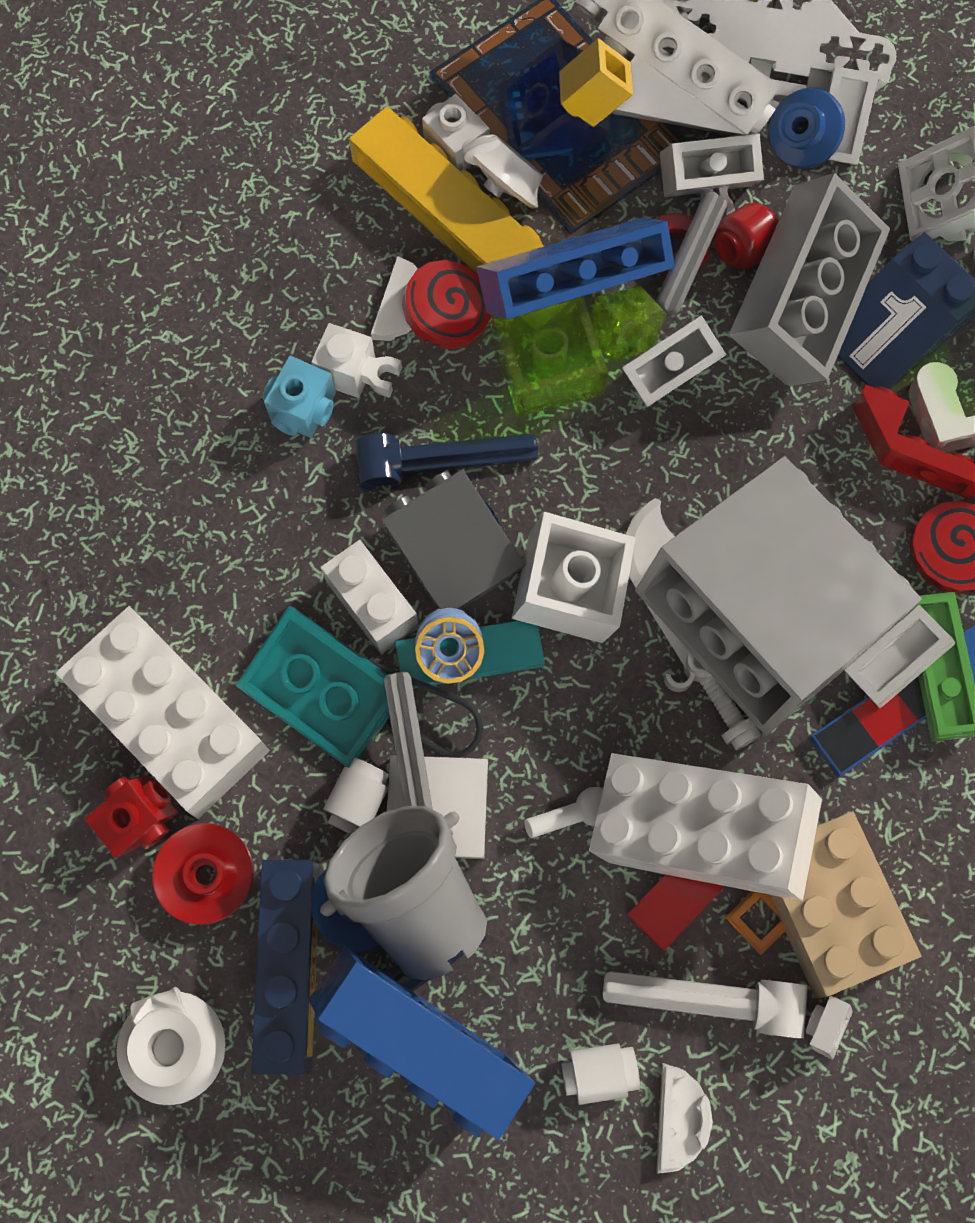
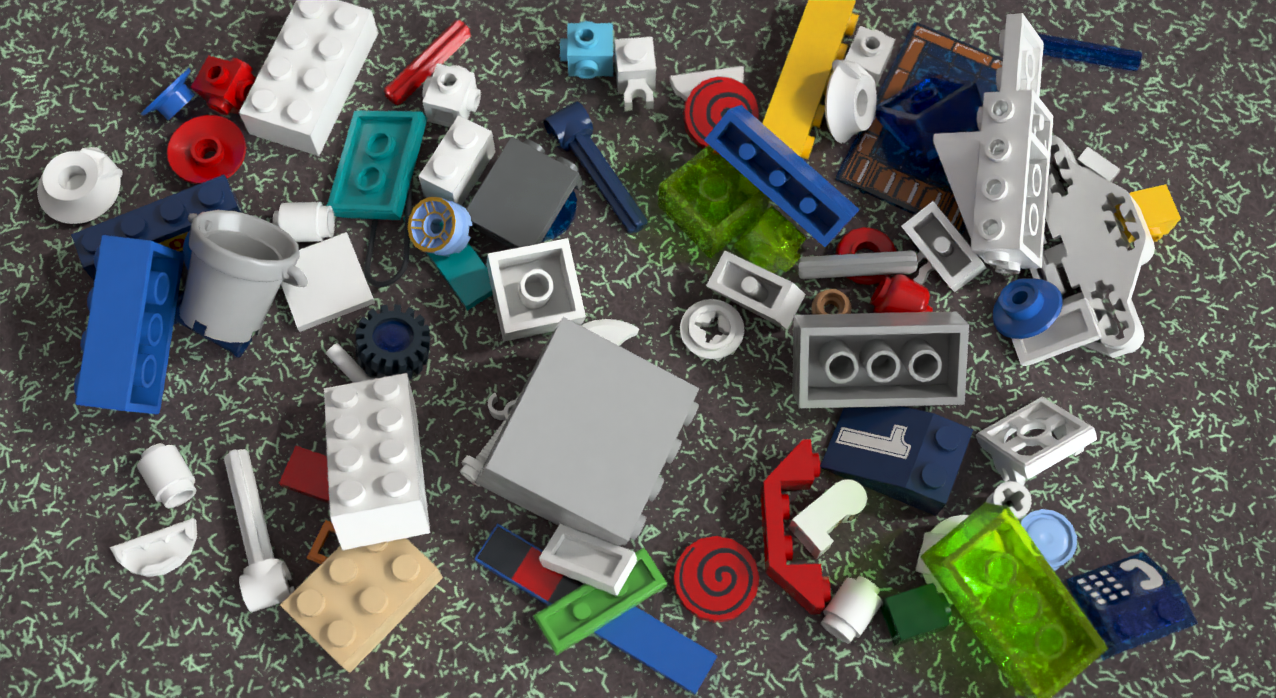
camera: 60 degrees right, 5 degrees down
(108, 889) = (172, 98): none -> blue piece
(214, 580) = (425, 64): none -> red axle
(280, 568) = (450, 94): none -> white brick
(407, 740) = (352, 234): light grey axle -> none
(557, 758) = (392, 342): none -> black wheel
(595, 83) = (939, 114): yellow brick -> none
(688, 408) = (703, 314): none -> white gear
(718, 292) = (833, 297): none -> medium nougat plate
(828, 1026) = (266, 628): white plate -> none

